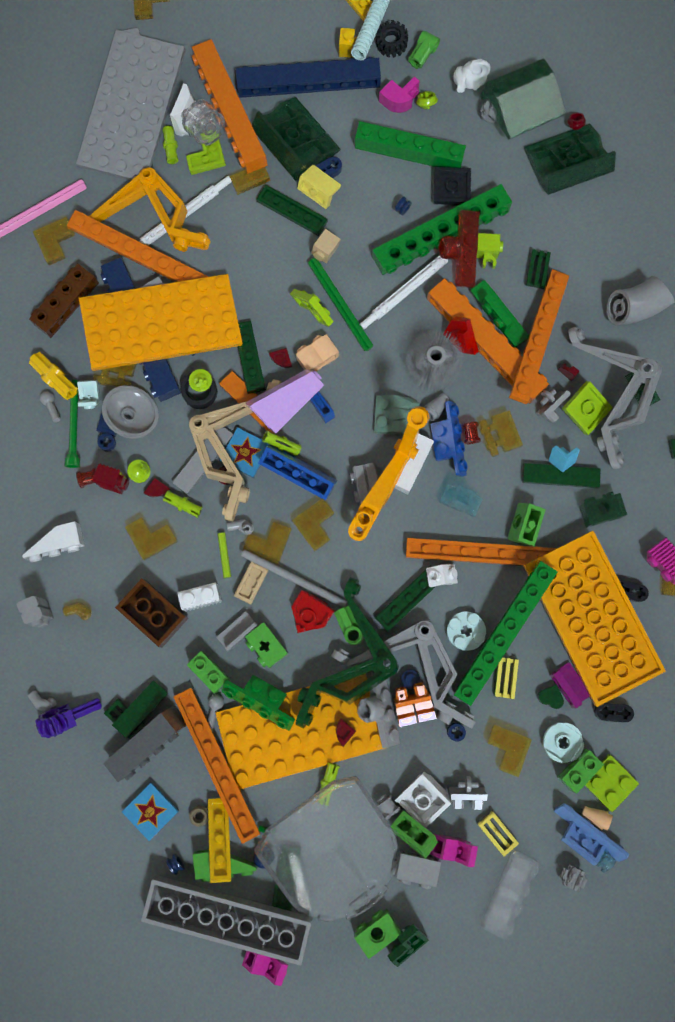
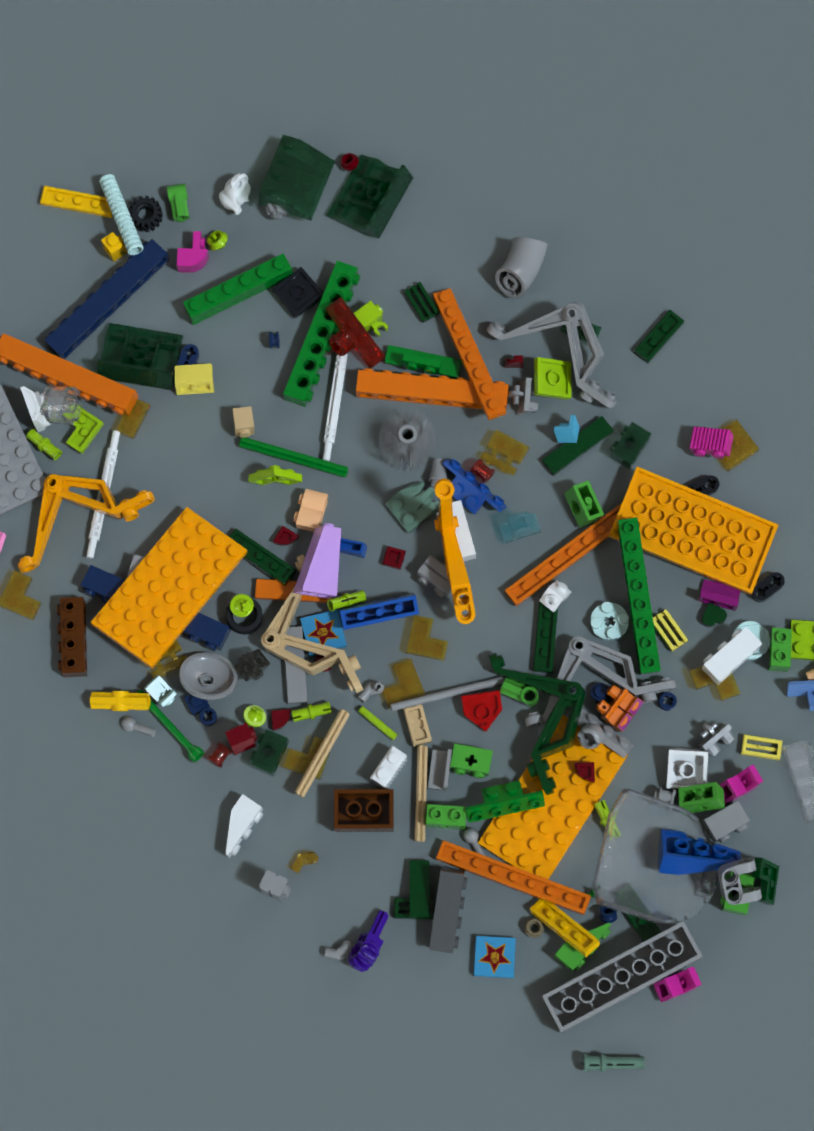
camera: 40 degrees left, 5 degrees down
(131, 248) = (93, 550): orange plate -> none
(135, 508) = (269, 764): none -> clear green brick
(156, 970) = (602, 1062): none -> sand green pin
(160, 542) = (322, 753): none -> tan axle
(169, 431) = (248, 665): none -> clear smoke brick
(175, 864) = (548, 976): dark blue bush -> none
(208, 636) = (421, 793): none -> tan axle
(292, 210) = (188, 415): dark green tile -> none
(347, 442) = (394, 558): none -> dark red tile
(363, 870) = (686, 855): none -> blue wedge
(389, 921) = (733, 883): none -> light grey piece
(463, 330) = (410, 399): red plate -> none
(537, 742) = (731, 655): none -> white brick

